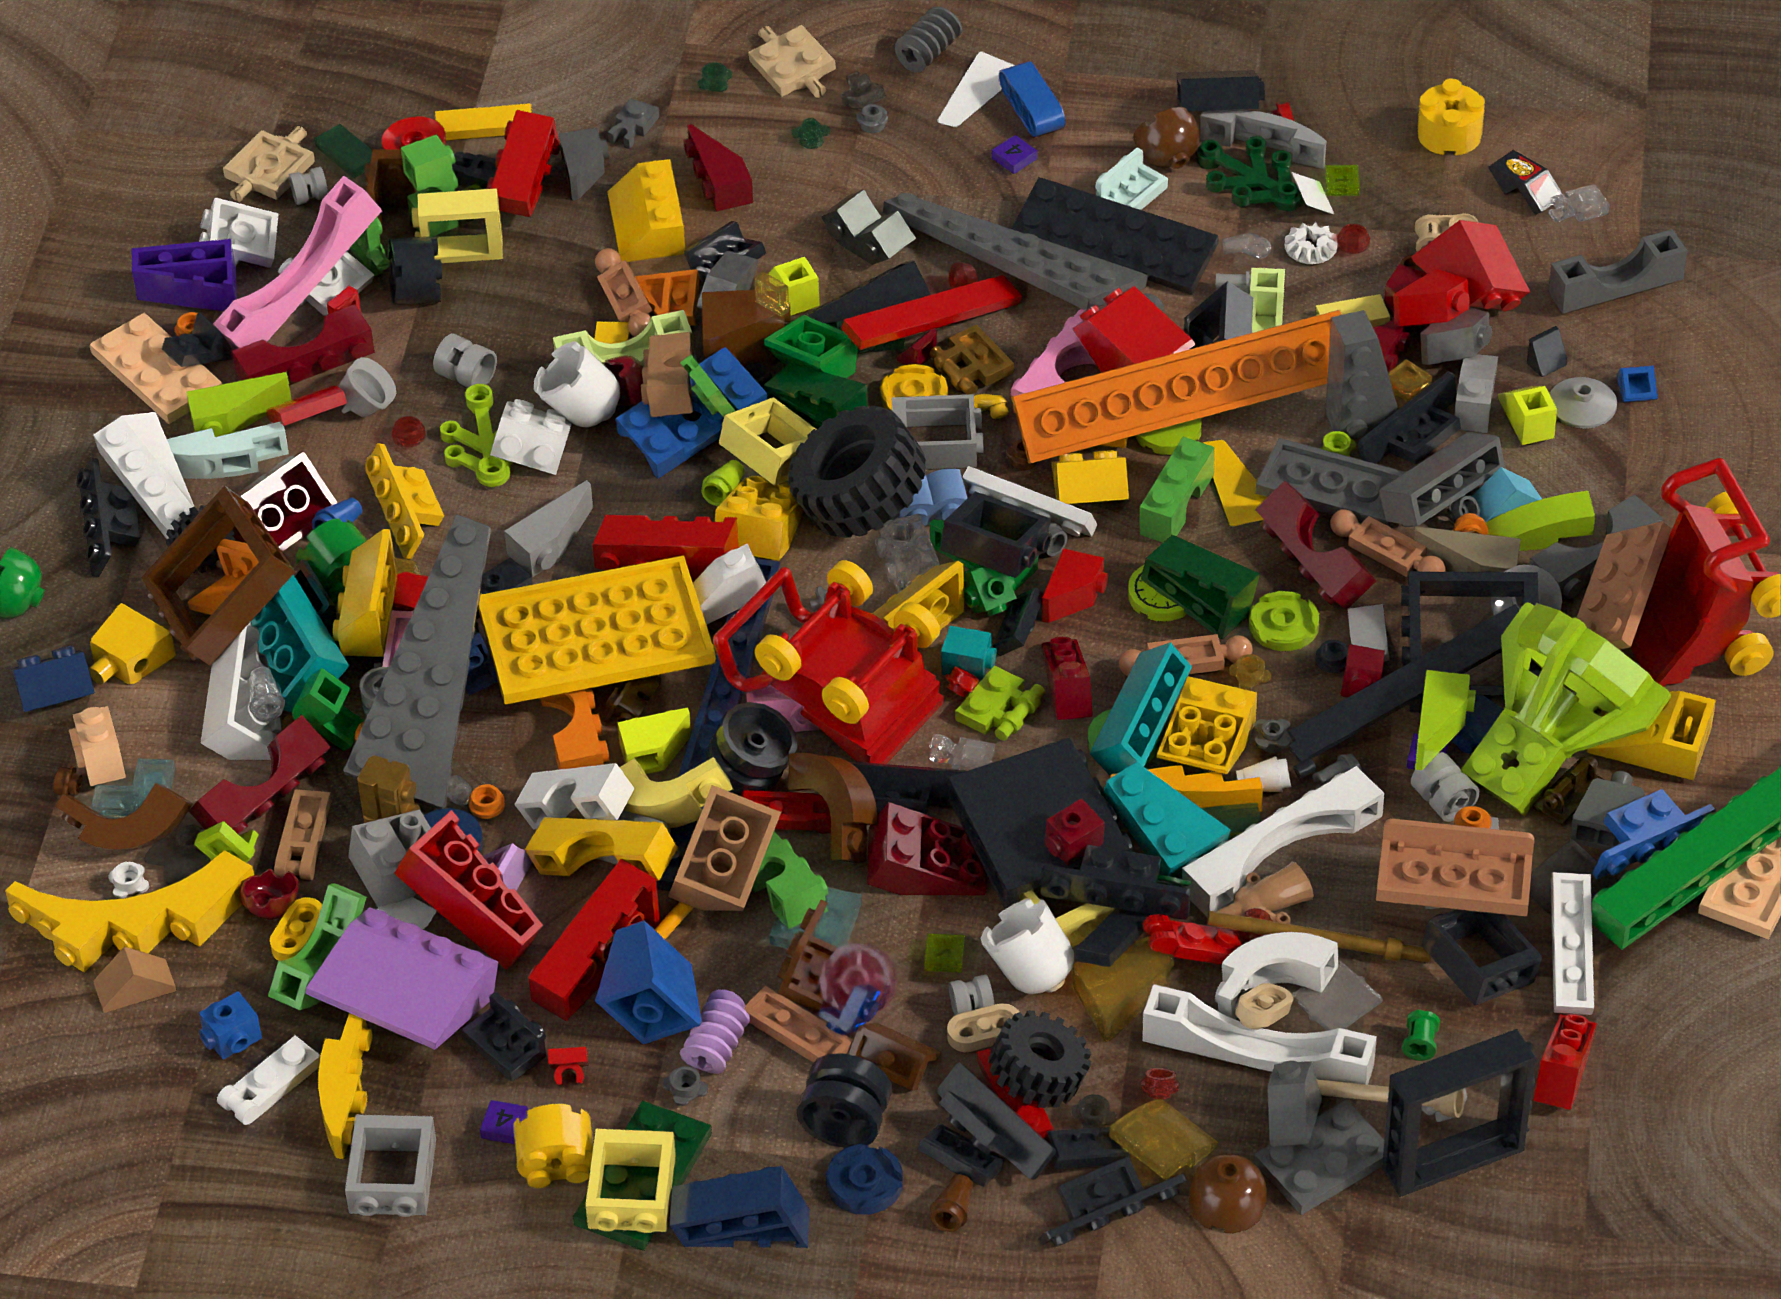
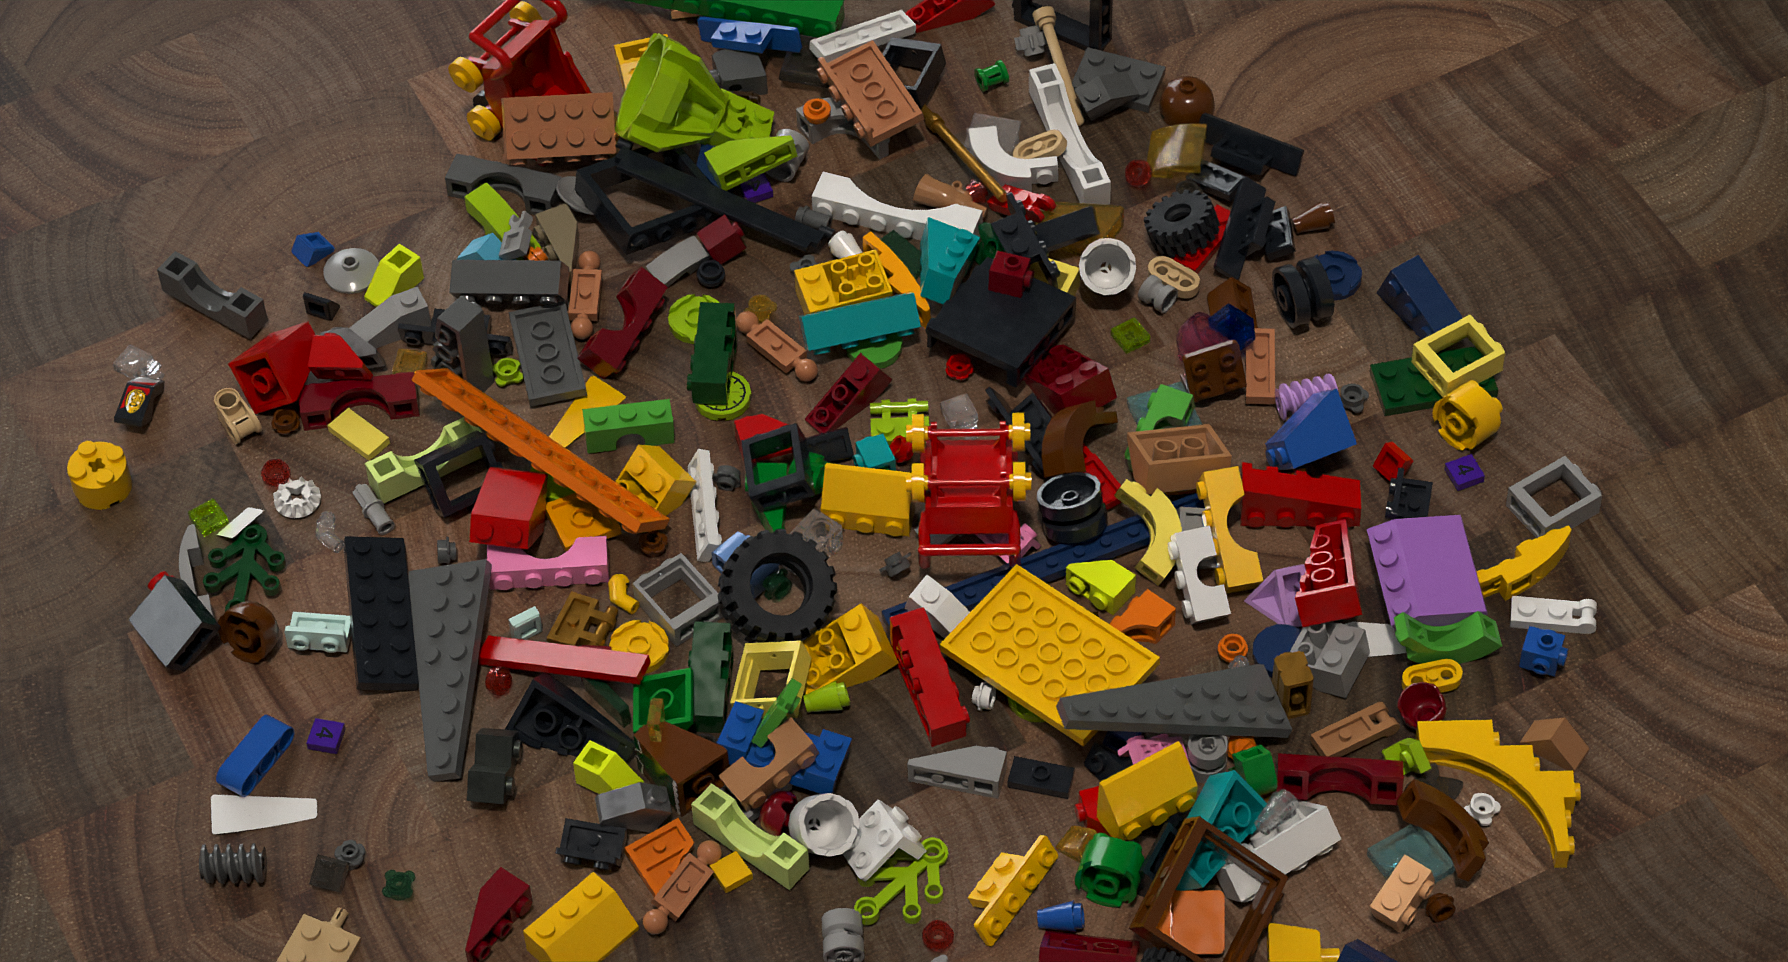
camera: 125 degrees left, 5 degrees up
(1006, 319) = (525, 624): none -> light aqua tile
(1492, 506) = (517, 240): none -> light grey plate

